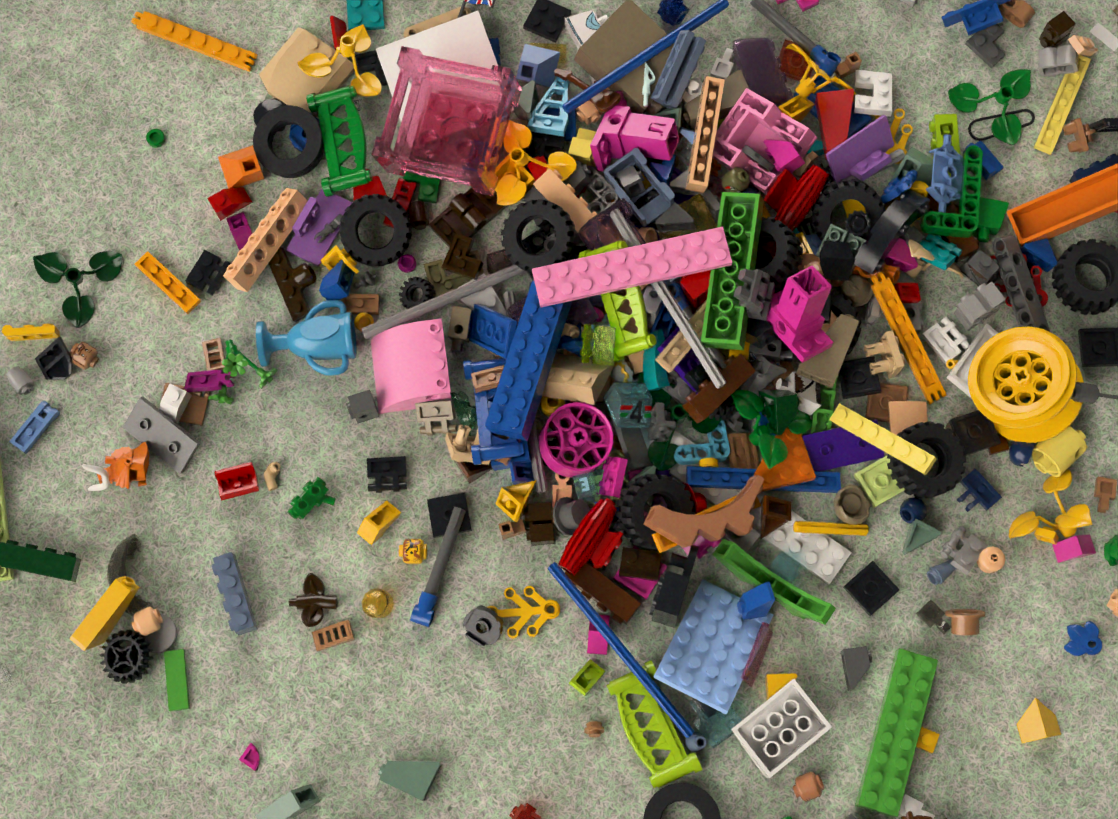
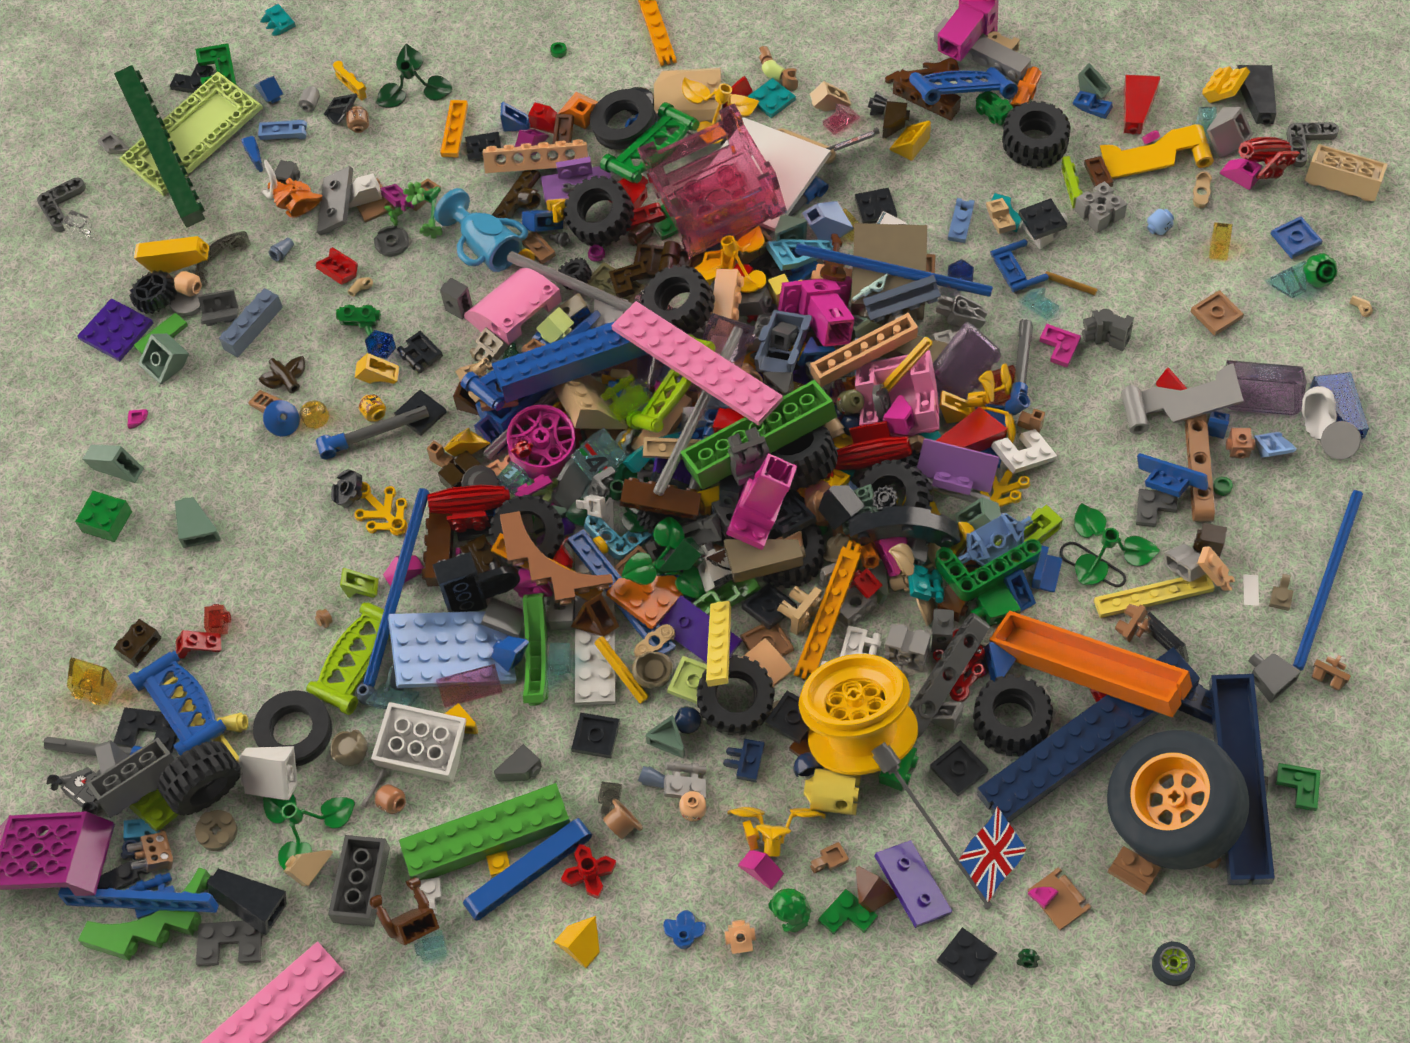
camera: 55 degrees right, 15 degrees down
(32, 467) = (252, 149): none -> blue slope
(91, 454) = (287, 170): none -> dark grey brick
(135, 716) = (115, 329): none -> dark purple plate
(173, 517) = (280, 249): none -> sand blue cone
(197, 611) = (218, 307): none -> dark grey bracket
(203, 227) = (513, 119): none -> blue slope
(207, 693) = (162, 357): none -> sand green slope
(244, 428) = (394, 248): none -> dark grey tile
(255, 197) = (563, 128): none -> reddish brown plate
(355, 500) = (380, 344): none -> clear blue brick
(357, 638) = (275, 424): none -> blue dish
(472, 348) = (555, 326): none -> yellowish green brick
(582, 459) = (522, 449): none -> red plate
(674, 441) = (594, 504): none -> white plate
(712, 33) = (961, 310): none -> light grey hinge
(715, 584) = (503, 617): none -> dark grey slope
(738, 789) = (348, 748): none -> dark tan piece
(750, 112) = (907, 363): none -> yellow axle
(777, 777) = (383, 773): none -> light grey hinge
(826, 498) = (664, 633): none -> tan piece
(898, 186) = (953, 512): blue plate -> none
(949, 721) = (527, 869): none -> blue beam
(976, 673) = (588, 871): none -> red plant
(990, 189) = (1020, 589): none -> blue slope
(1057, 318) = (948, 715): none -> light grey slope

